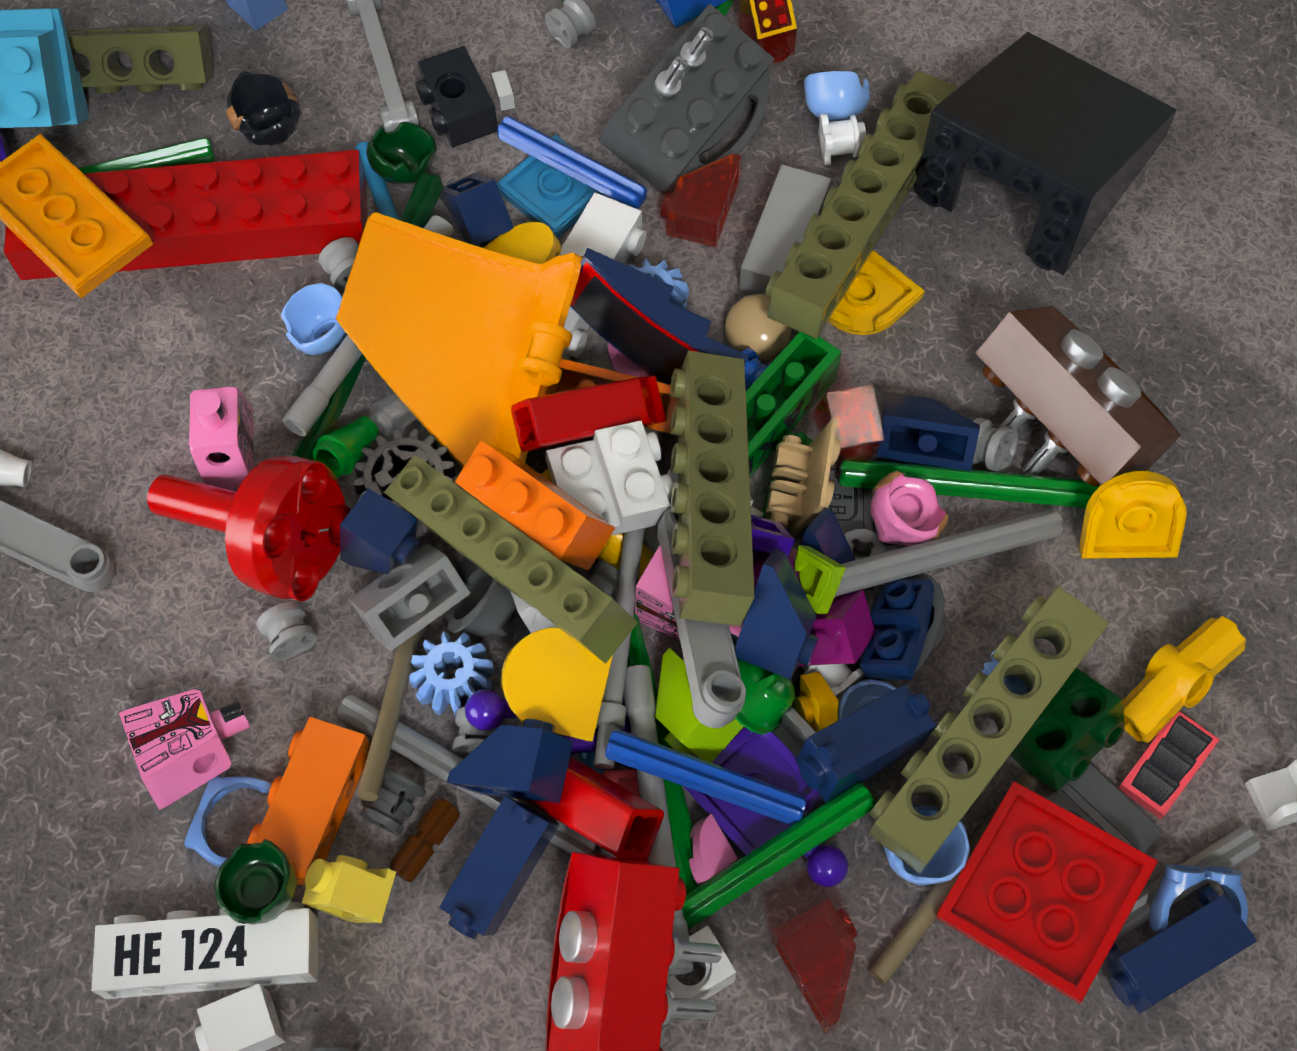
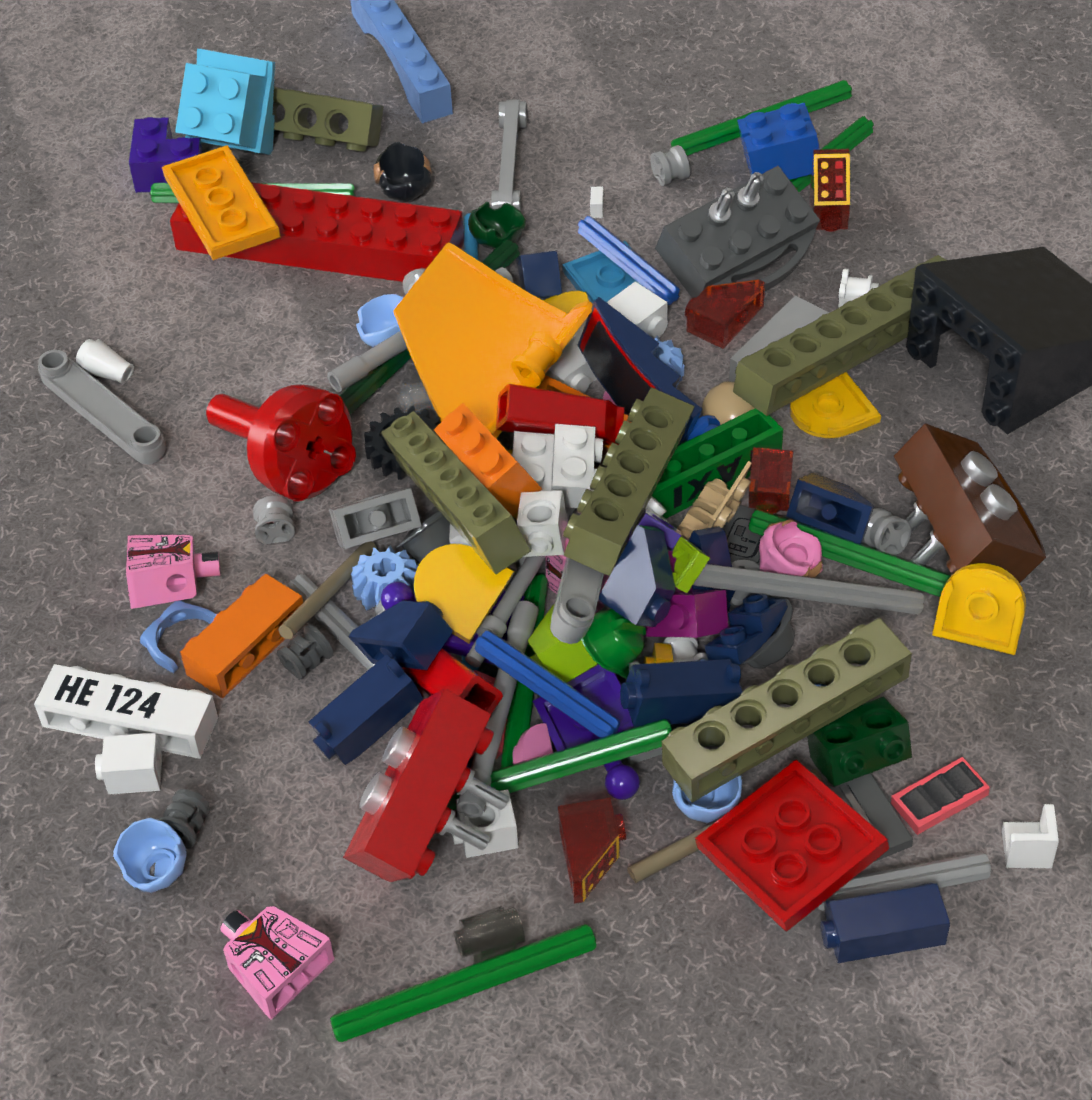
camera: 20 degrees right, 15 degrees down
(221, 423) = (278, 365): bright pink torso -> none
(256, 883) = (180, 661): dark green hair -> none
(343, 446) = (368, 407): green cone -> none
(348, 889) = (245, 694): light yellow brick -> none
(377, 534) = (365, 464): dark blue slope -> none
(418, 848) = (311, 690): reddish brown piece -> none
(457, 97) = (557, 196): black brick -> none
(628, 556) = (543, 522): none -> white brick
(836, 94) = (864, 257): light blue hair -> none
(1180, 677) = (974, 733): yellow piece -> none
(1181, 877) = (948, 879): medium blue cap -> none

